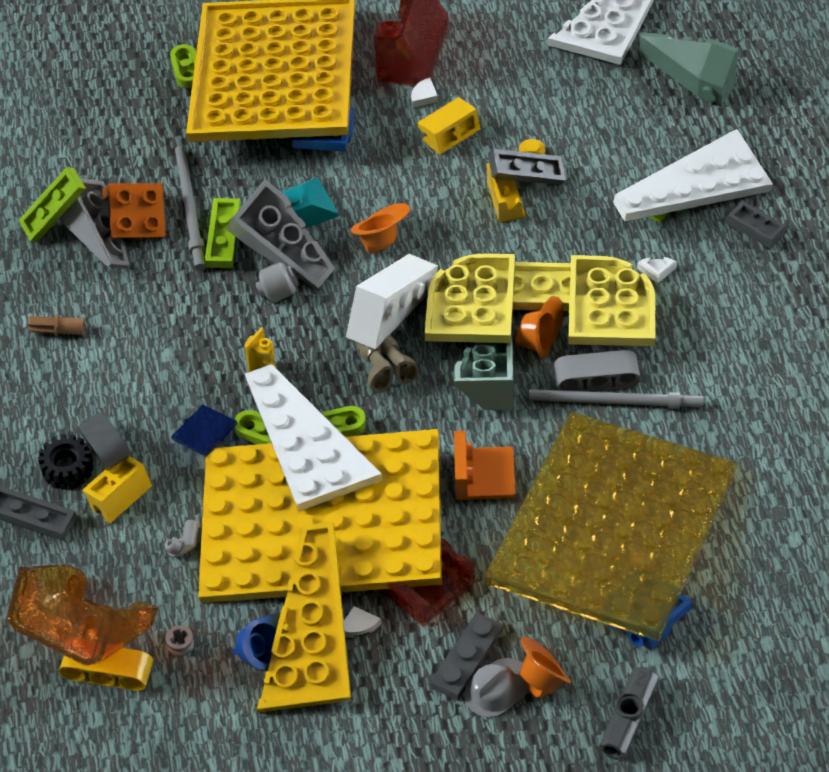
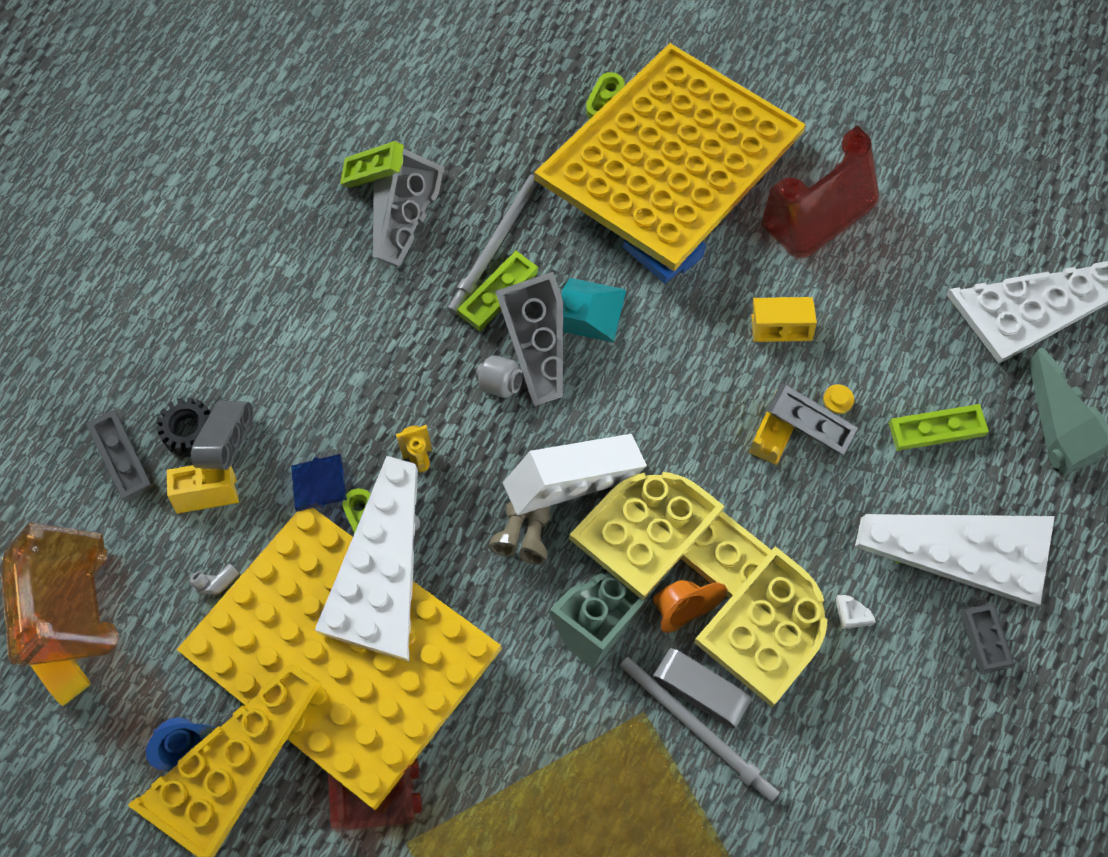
camera: 35 degrees right, 15 degrees up
(56, 325) = (291, 284): medium nougat axle -> none
(135, 210) = (440, 217): orange bracket -> none
(175, 648) = (124, 672): light grey bush -> none
(342, 416) = (433, 561): lime plate -> none
(360, 622) = (283, 785): white tile -> none
(381, 228) = (633, 384): orange piece -> none
(424, 93) = (789, 267): white tile -> none
(483, 470) = (513, 713): orange bracket -> none
(614, 125) = (938, 427): none -> lime plate

